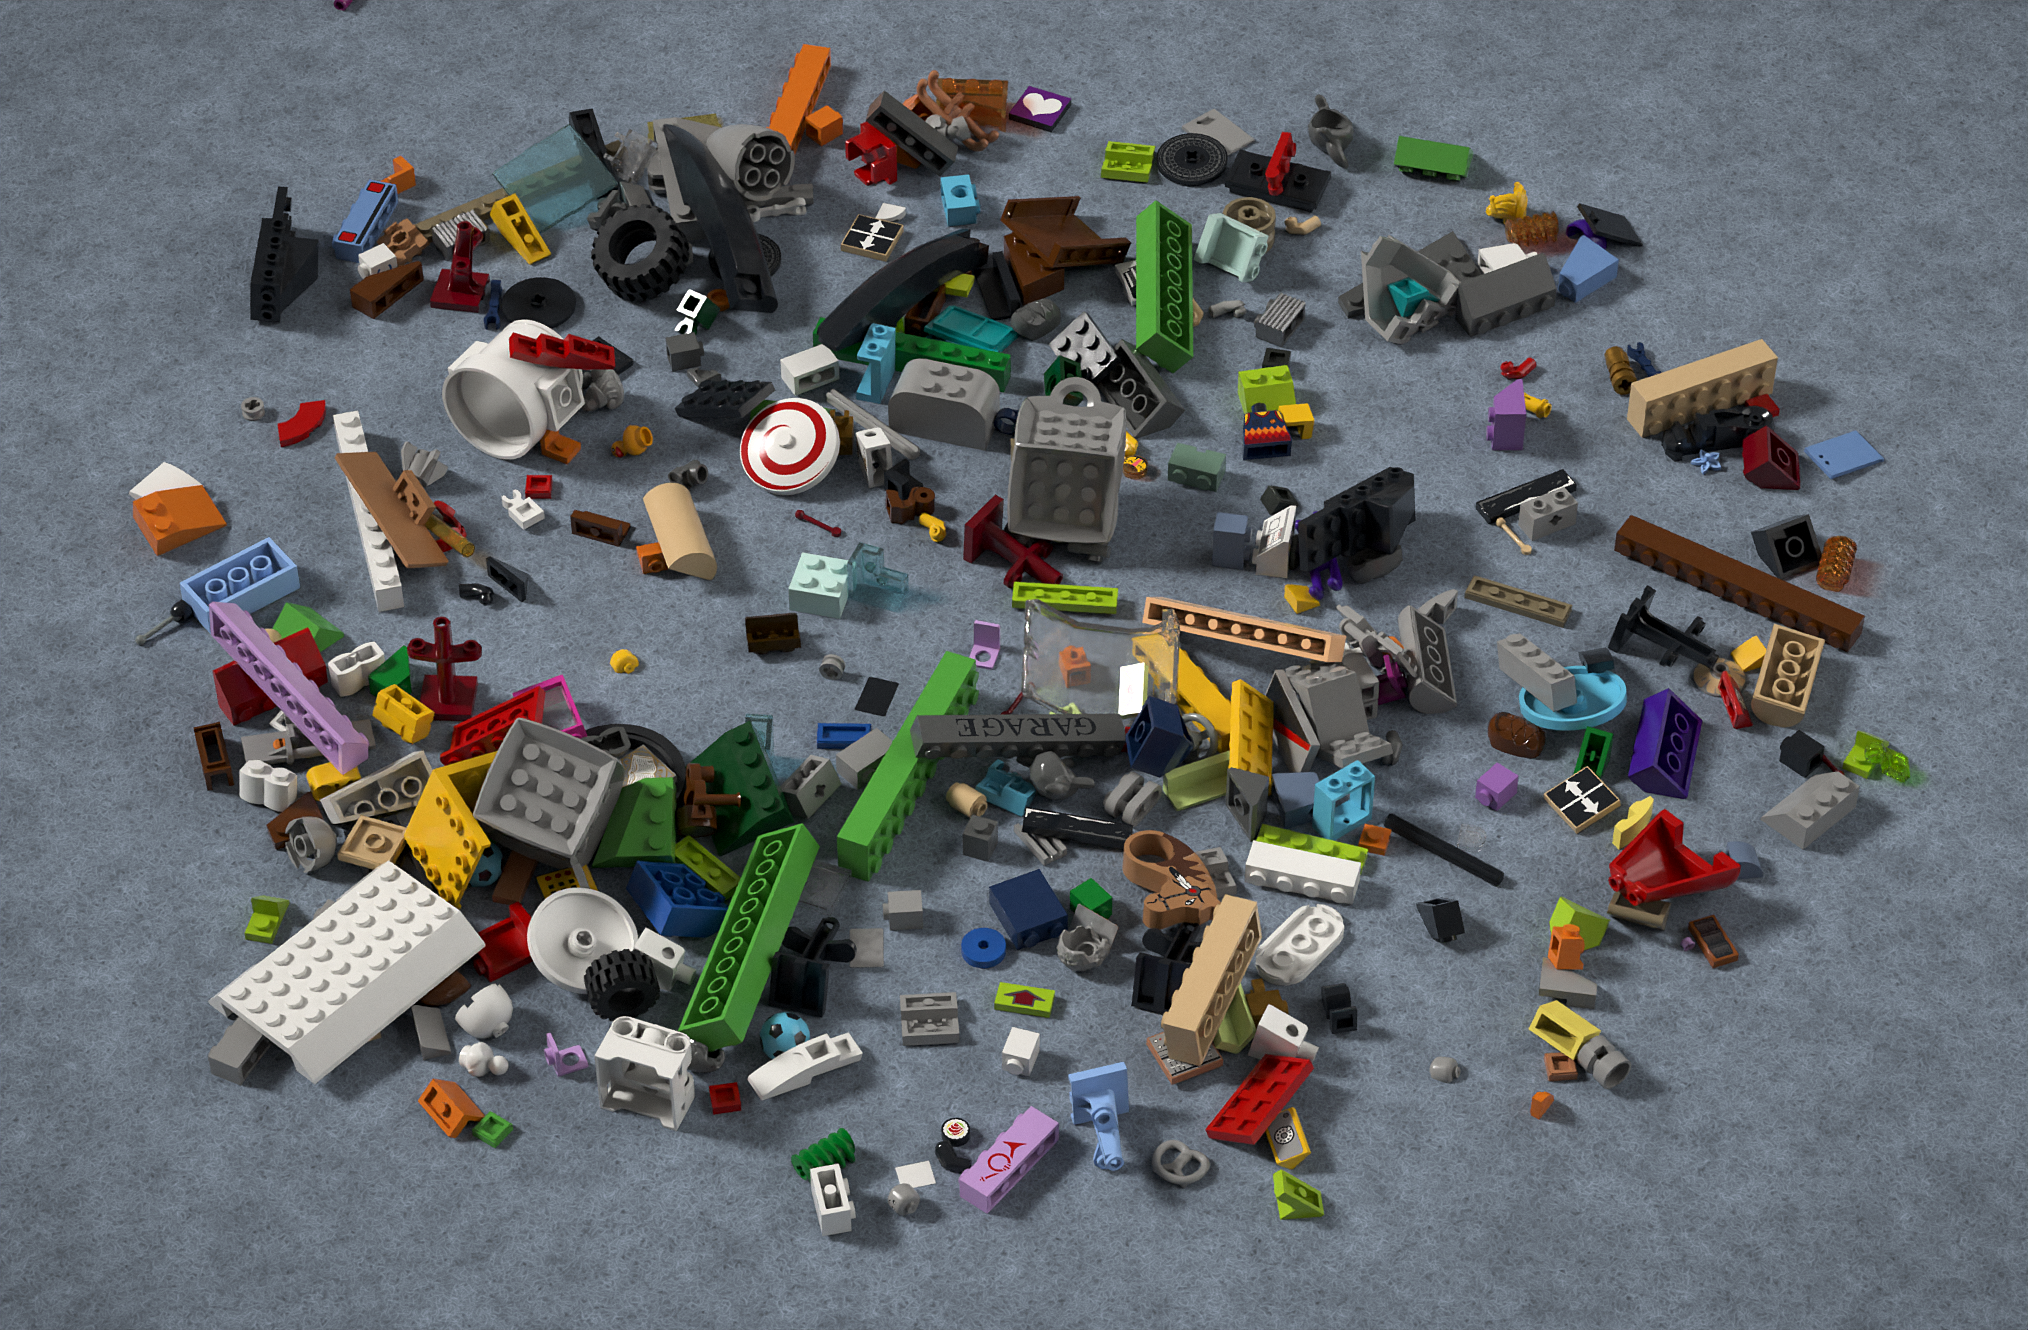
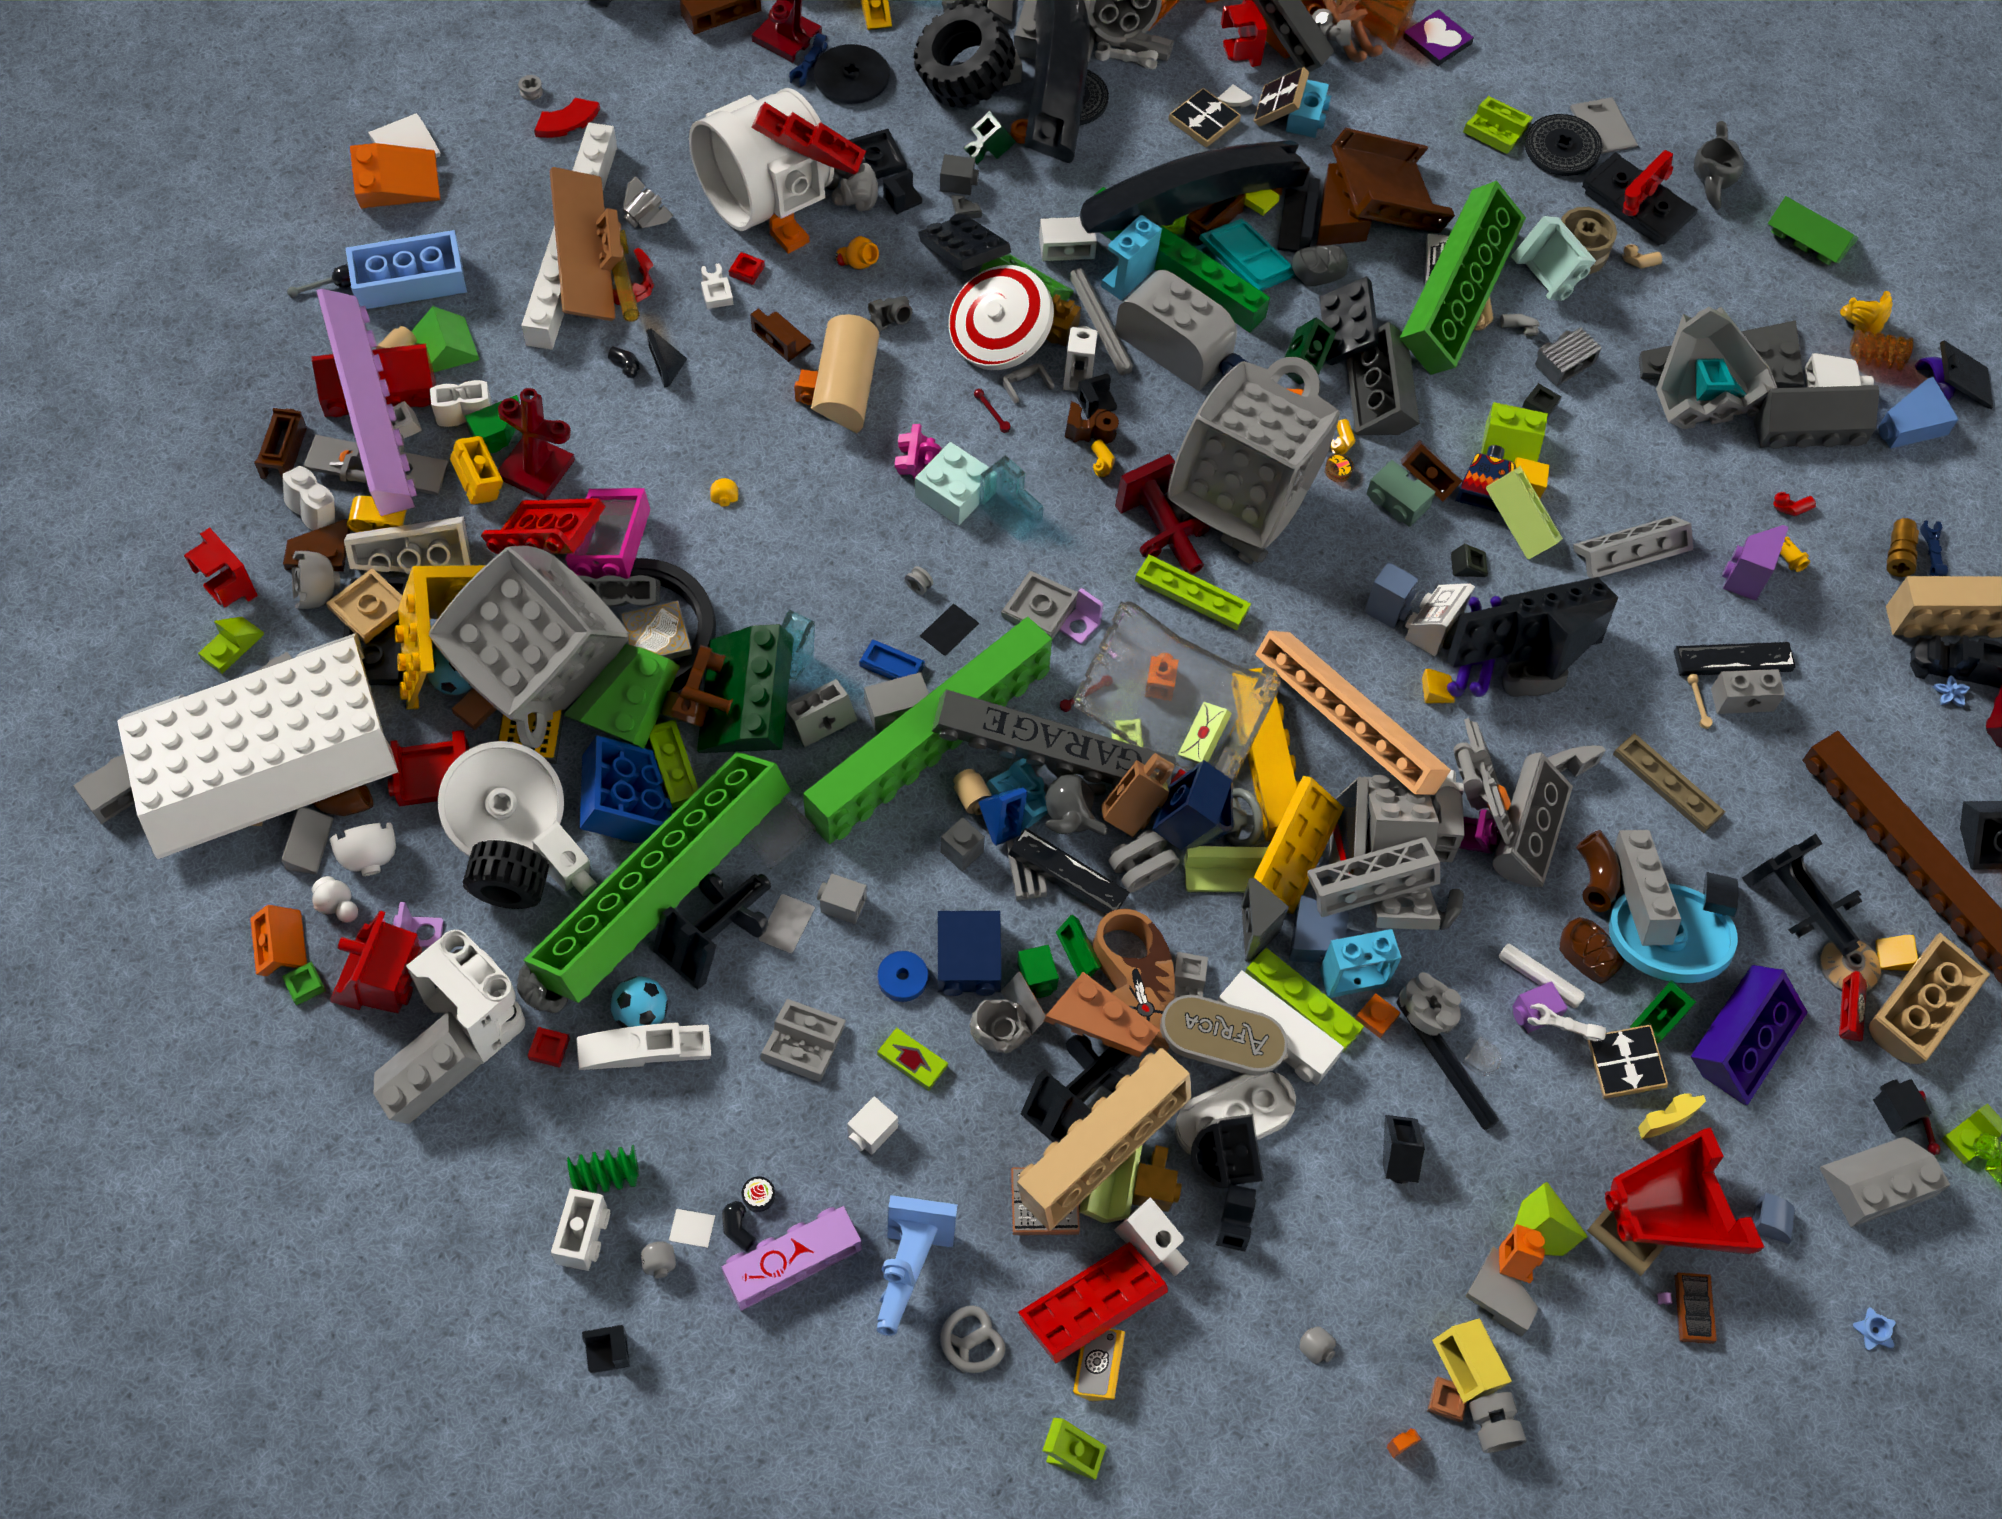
camera: 20 degrees right, 15 degrees up
(233, 856) = (233, 578): none -> red panel
(553, 1086) = (377, 967): none -> red piece
(639, 384) = (900, 193): none -> black panel
(639, 1140) = (425, 1070): none -> light grey slope
(772, 633) = (879, 519): dark brown bracket -> none
(778, 571) = (920, 451): none -> dark pink hips
(829, 486) = (1023, 373): none -> light grey piece
(898, 1270) = (606, 1348): none -> black panel
(932, 198) = (1281, 96): none -> tile
(934, 644) = (1042, 602): none -> light grey tile
(1003, 802) = (1004, 814): none -> blue slope
(1106, 747) = (1138, 795): none -> medium nougat brick
(1114, 877) = (1078, 947): none -> green tile
(1156, 900) = (1100, 1014): none -> nougat wing
(1212, 438) = (1431, 470): none -> reddish brown slope
(1266, 882) = (1223, 1035): none -> dark tan tile
(1305, 446) = (1524, 513): none -> yellowish green panel
(1309, 964) = (1228, 1152): none -> black slope
(1329, 733) = (1378, 881): none -> light grey fence
(1408, 440) = (1635, 546): none -> light grey fence
(1413, 814) = (1445, 1001): none -> light grey plate
(1481, 765) = (1541, 974): none -> white axle
(1498, 676) = (1603, 870): none -> reddish brown cylinder
(1506, 786) = (1548, 1017): none -> white piece
(1855, 901) = (1884, 1327): none -> light blue plate

